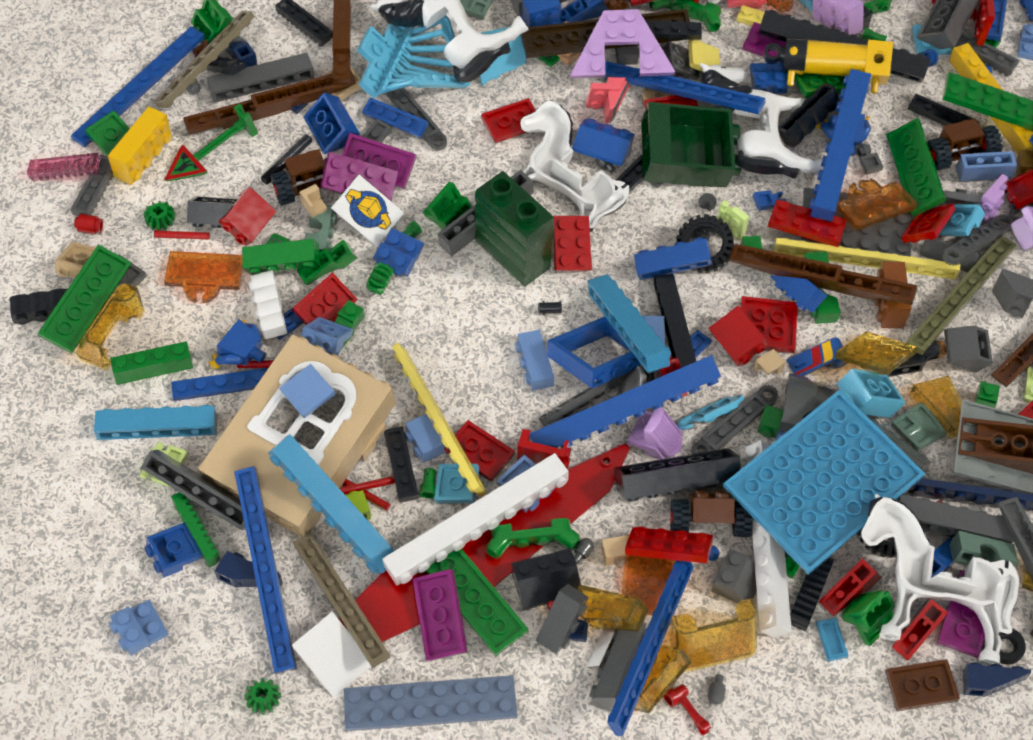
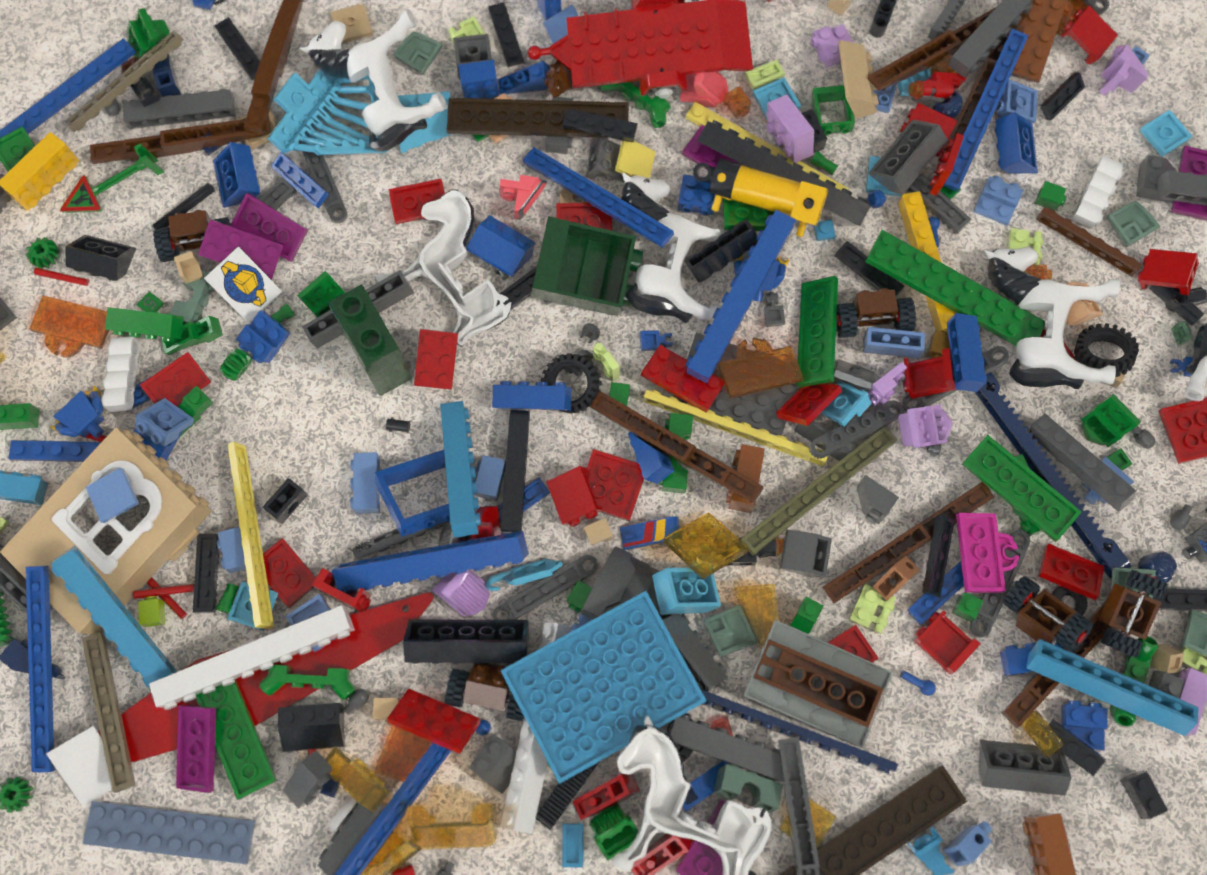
camera: 15 degrees right, 15 degrees up
(247, 216) = (123, 272): panel -> none
(462, 386) = (285, 500): none -> black brick
(622, 28) = (546, 118): lavender wing -> none
(891, 90) = (824, 230): none -> dark azure plate

